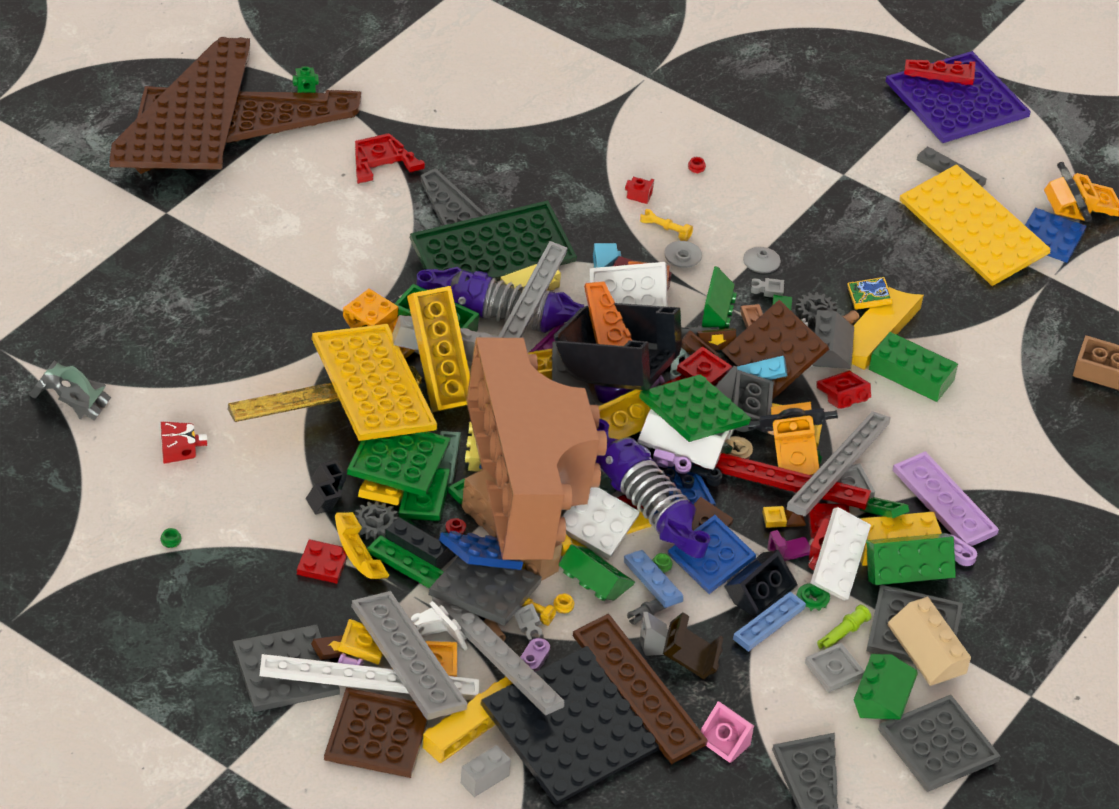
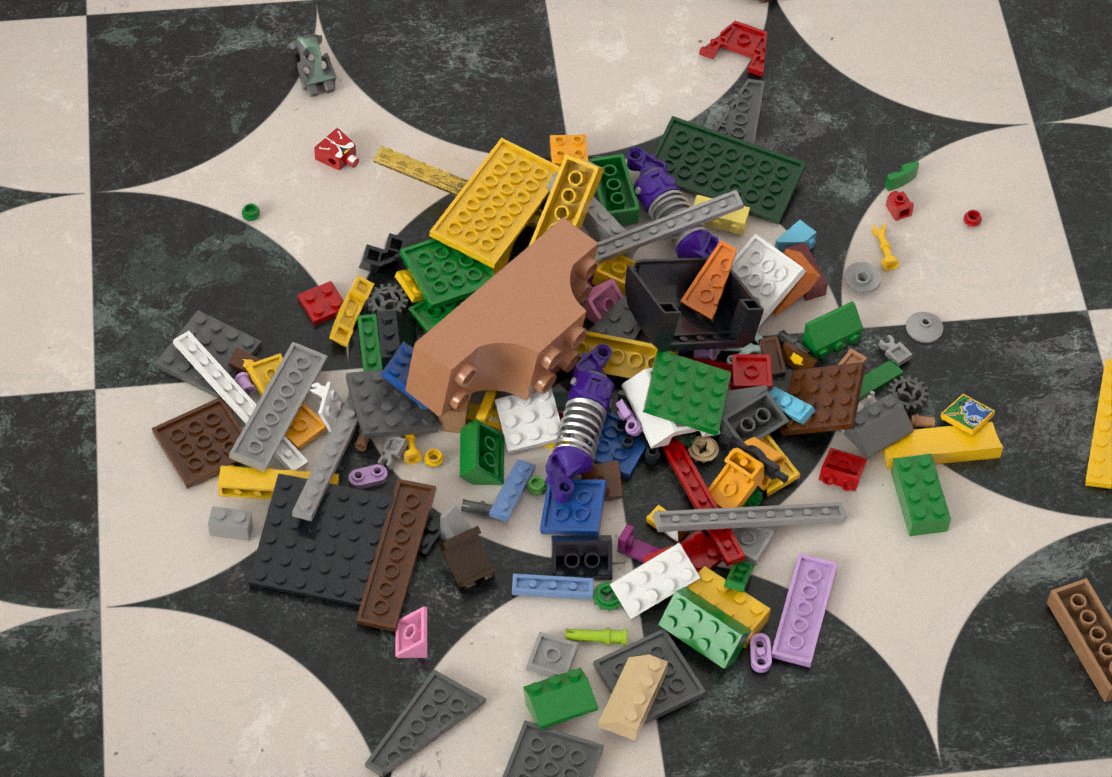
camera: 50 degrees right, 10 degrees up
(615, 168) = (898, 179): none -> green slope

